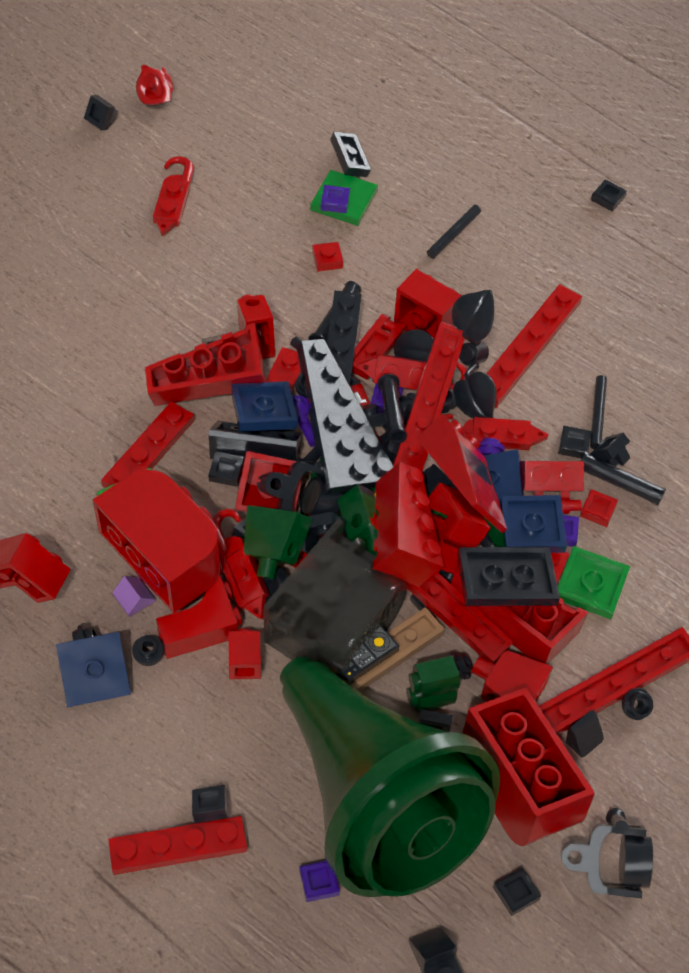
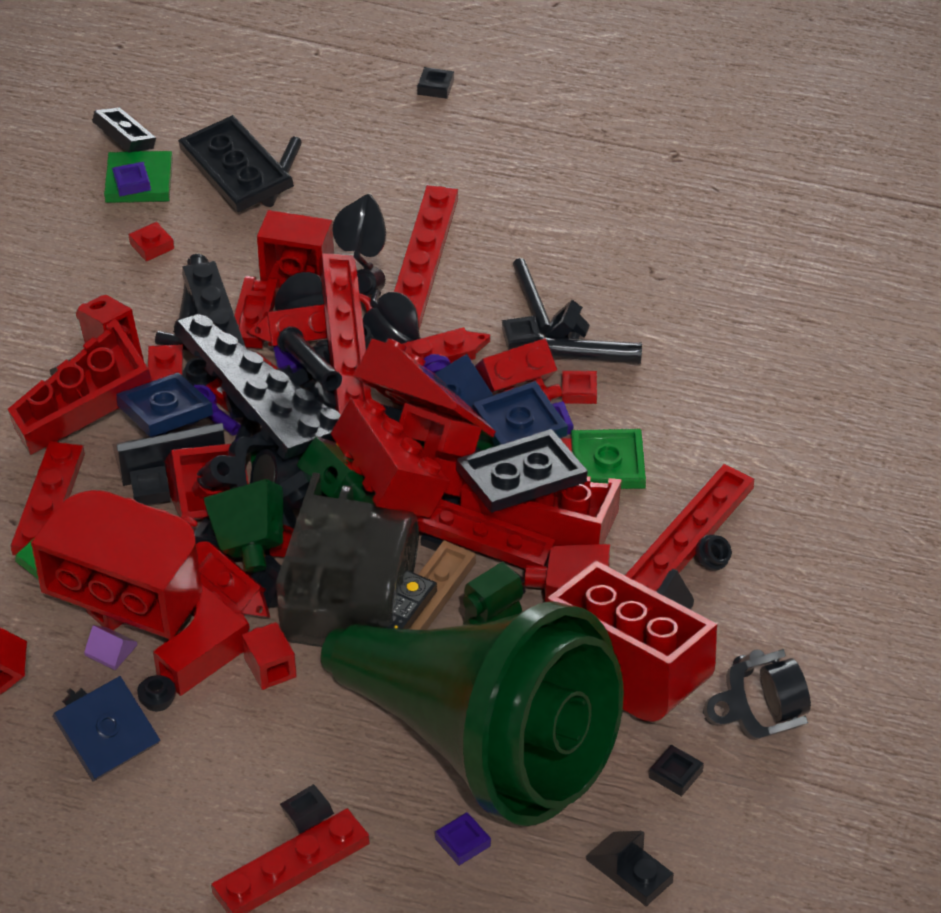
camera: 20 degrees left, 10 degrees down
(421, 213) = (235, 163): none -> black tile

